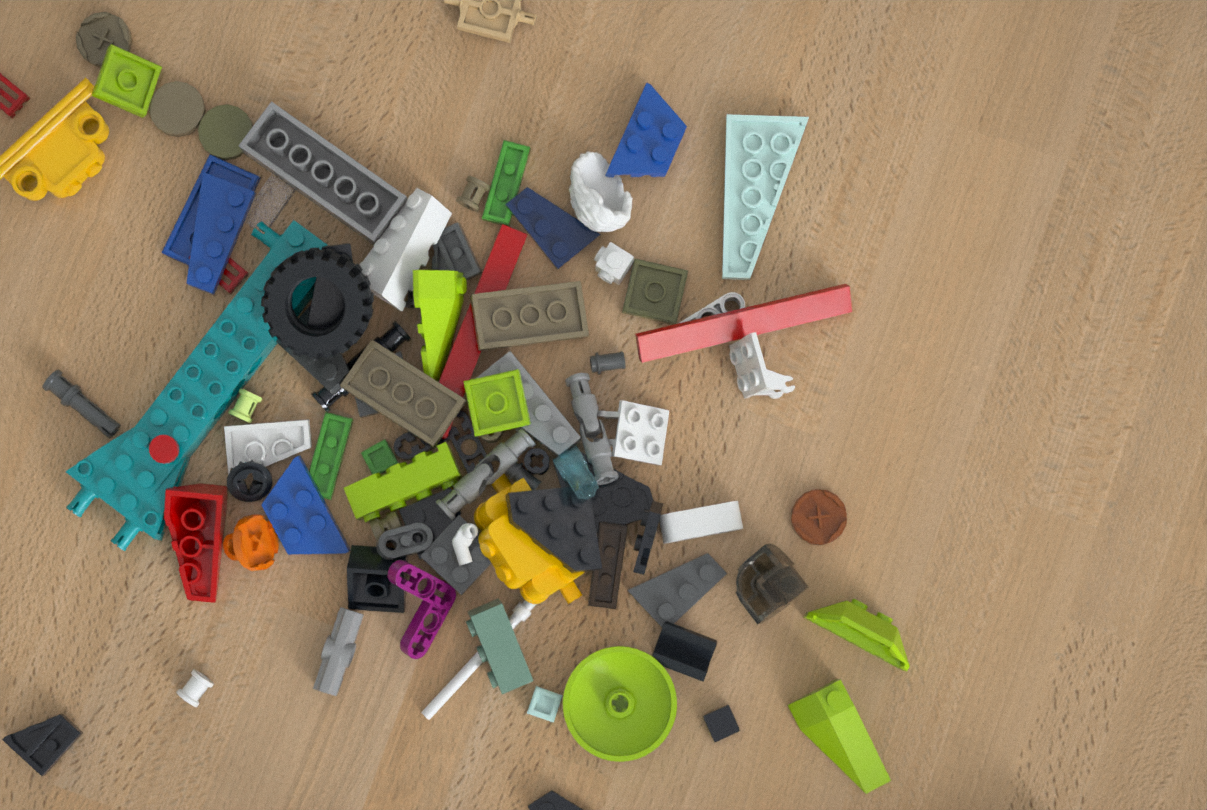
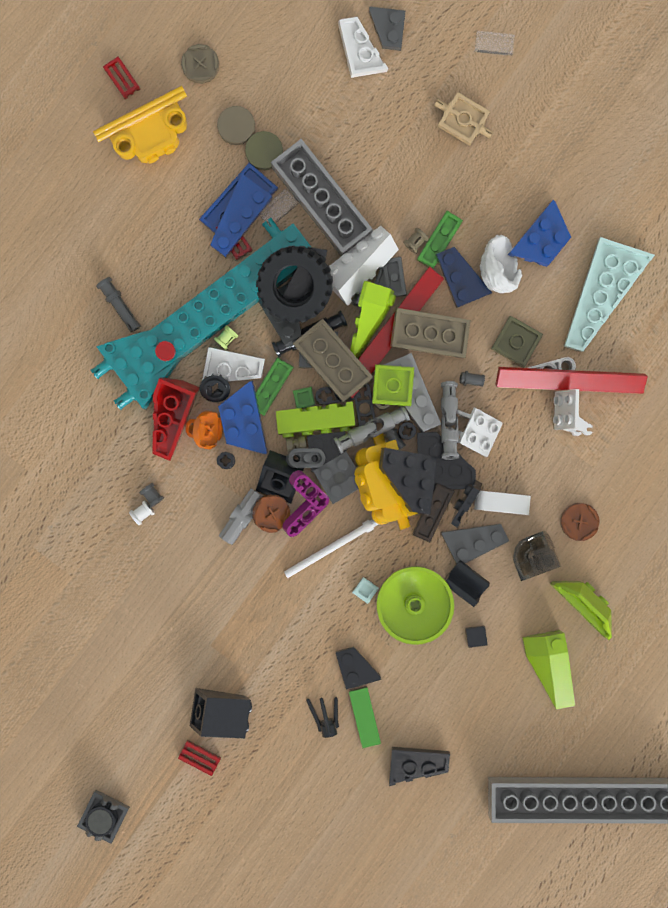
camera: 10 degrees right, 5 degrees up
(44, 742) = (34, 519): black wing -> none
(126, 81) = (208, 96): lime tile -> none
(202, 659) = (151, 495): none -> dark grey bush
(287, 573) = (222, 456): none -> black bush
(378, 634) = (270, 513): none -> dark orange tile
(462, 541) = (344, 469): white arm -> none
(498, 646) = (347, 545): sand green brick -> none
(575, 471) = (431, 445): clear light blue piece -> none
(613, 263) = (495, 314): white brick -> none

